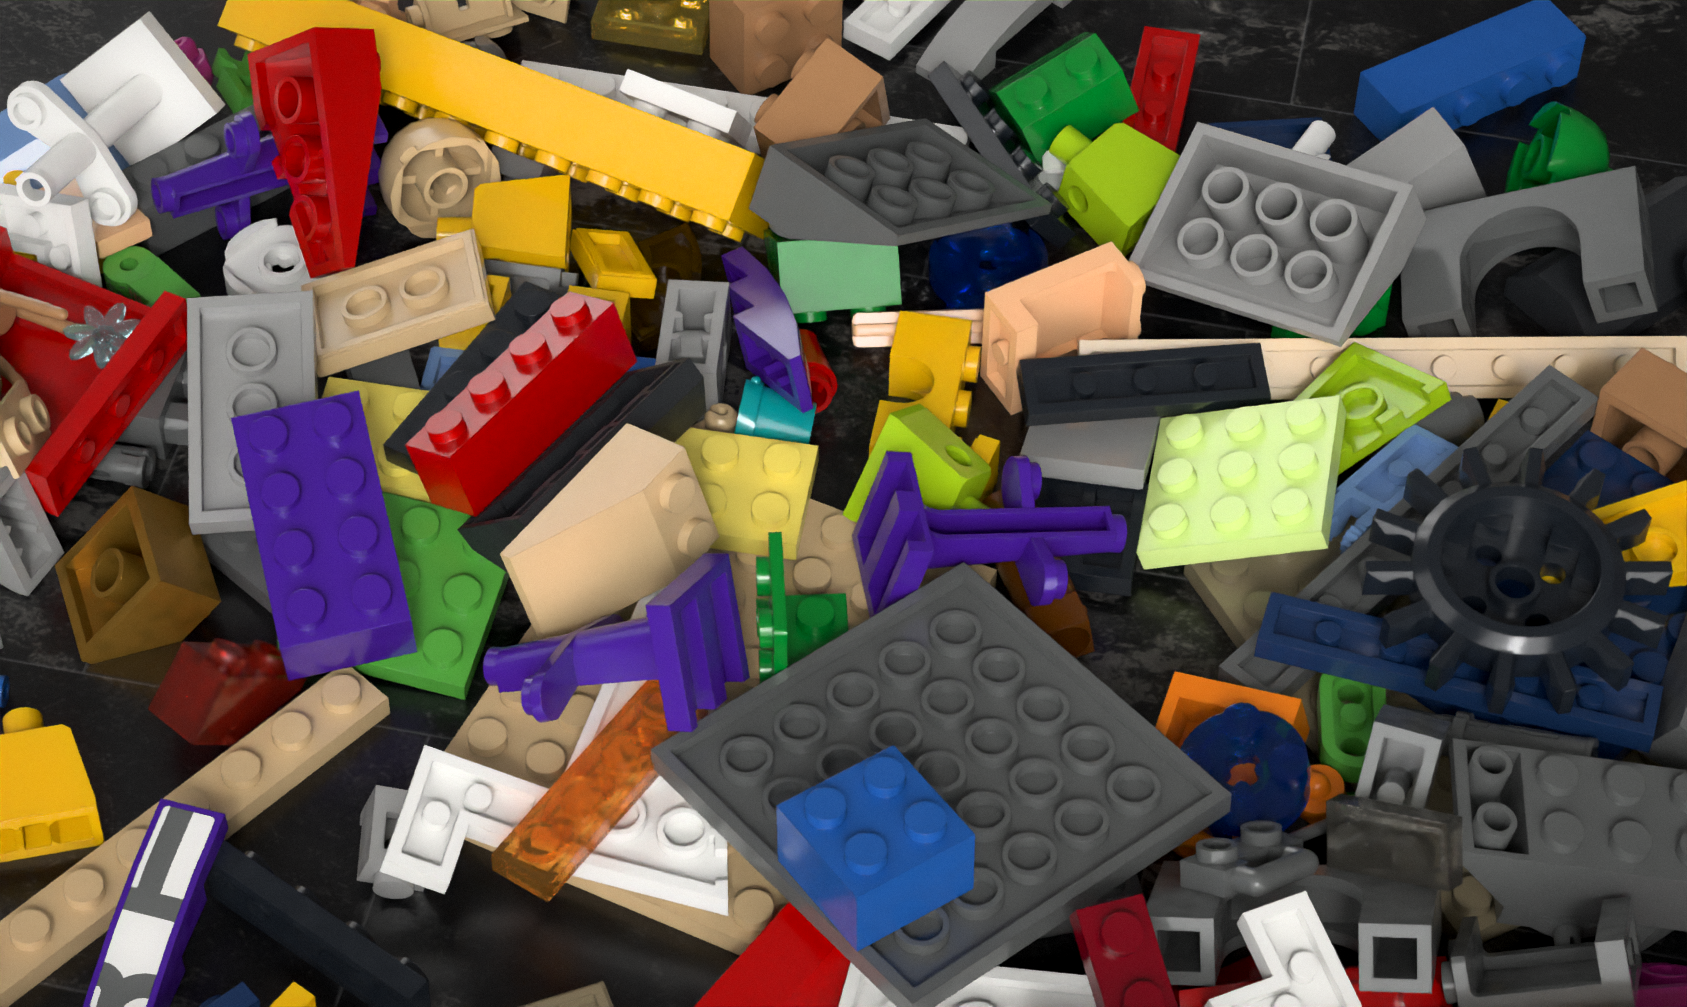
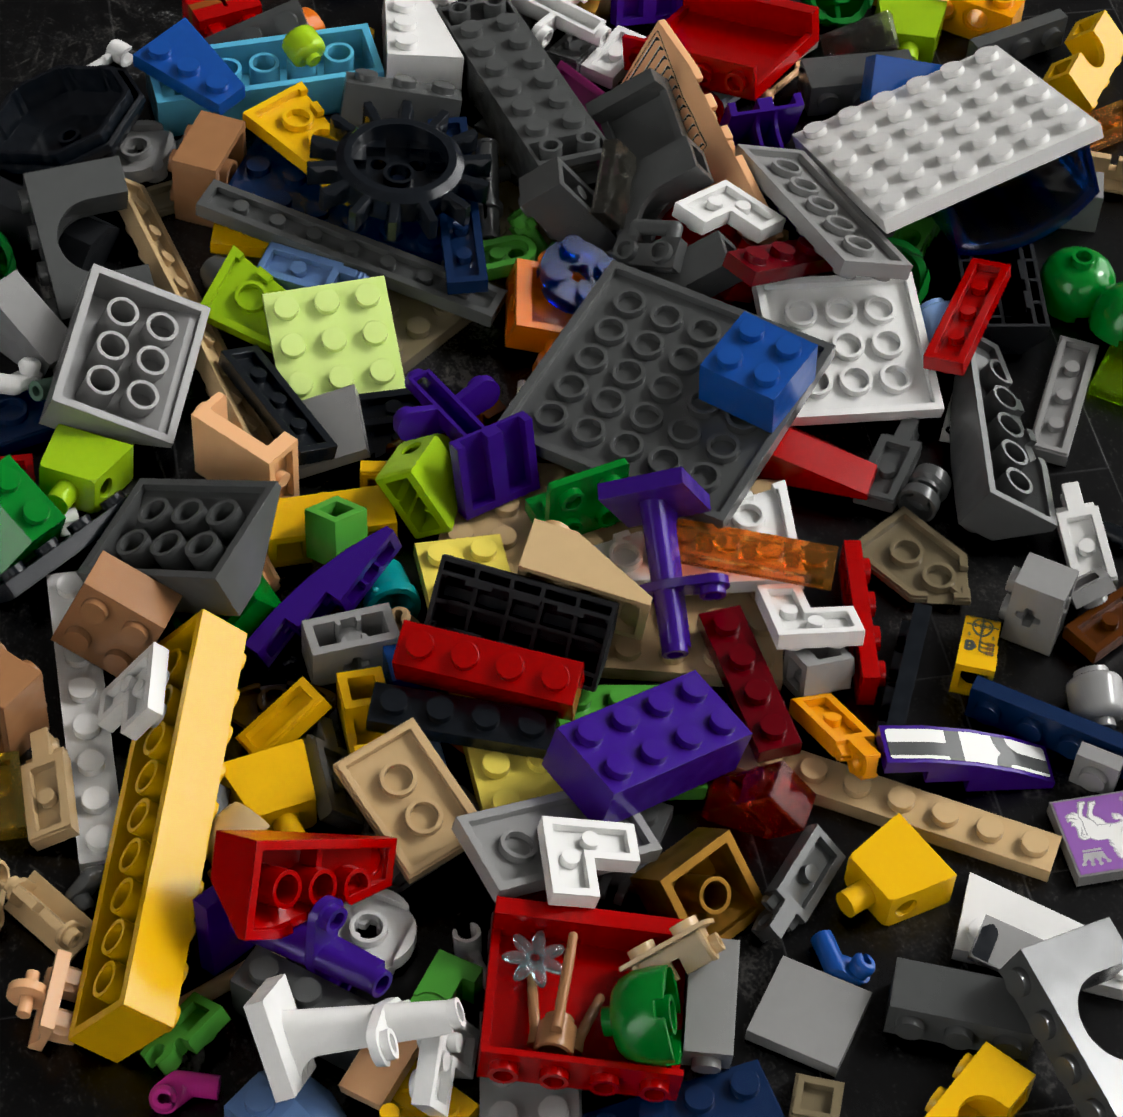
camera: 115 degrees left, 0 degrees up
(85, 689) = (798, 884): none -> dark grey hinge
(201, 388) = (576, 849): none -> white plate
(281, 809) = (838, 732): none -> light orange hinge
(395, 731) = (749, 683): none -> dark red plate
(457, 928) = (853, 577): none -> red plate
(644, 54) = (48, 792): none -> tan hinge
(872, 367) = (333, 528): none -> bright green brick

